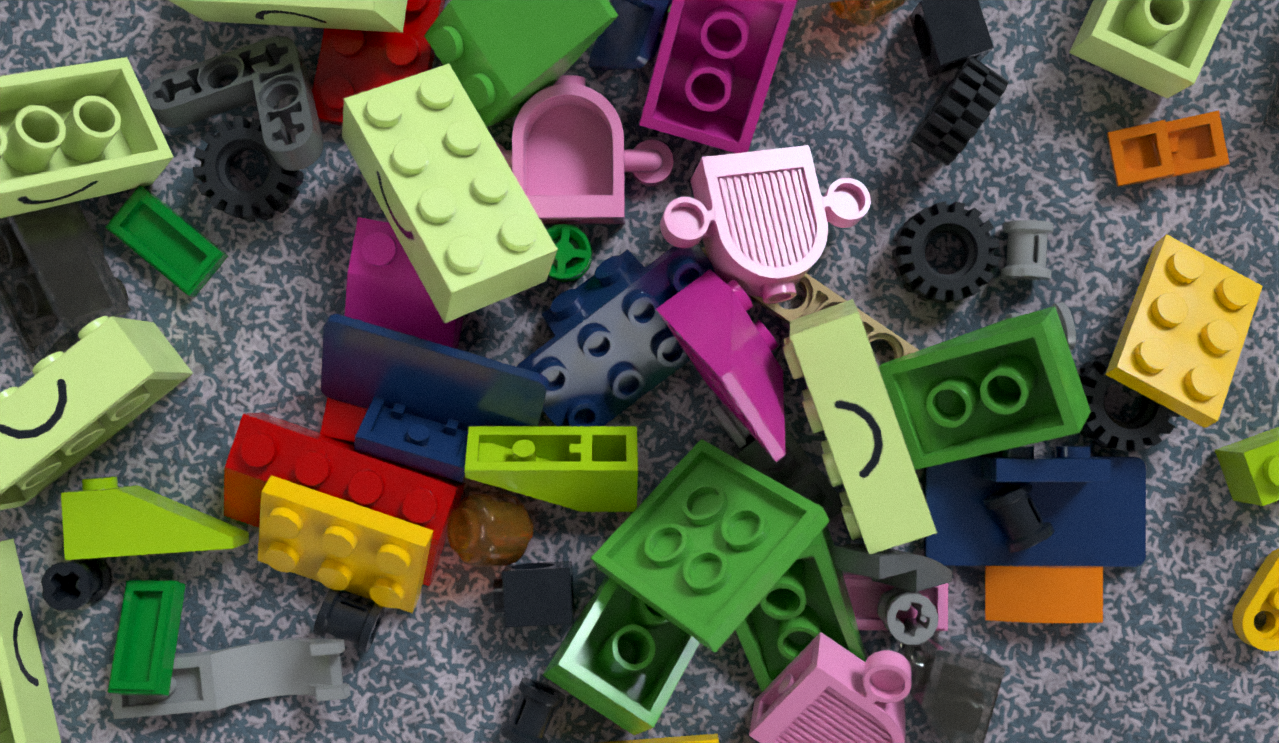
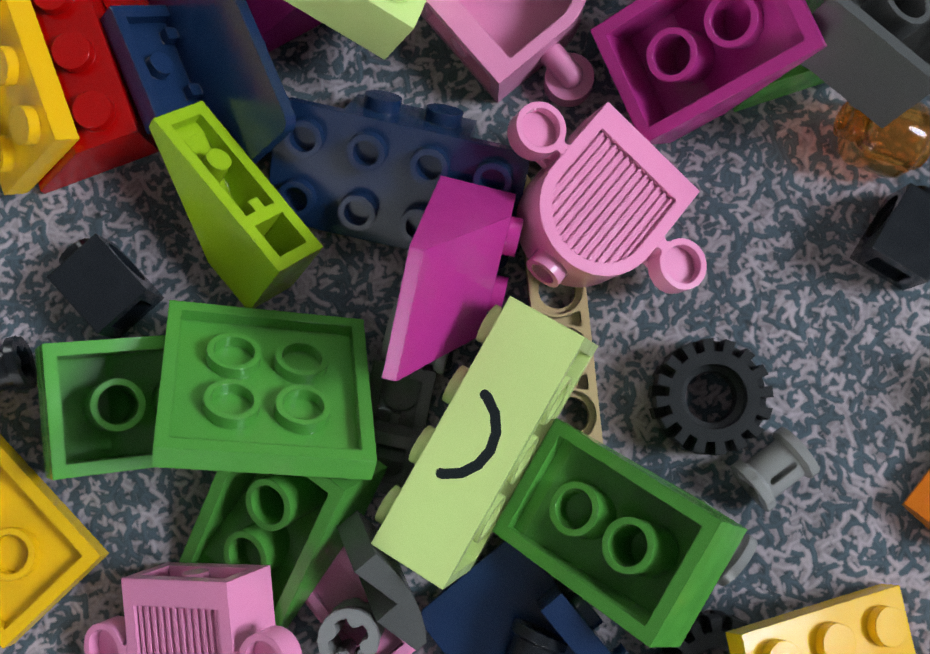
camera: 50 degrees right, 5 degrees down
(490, 530) = (127, 197): clear orange head -> none
(570, 244) = (421, 54): green wheel -> none
(959, 111) = (846, 298): black tyre -> none

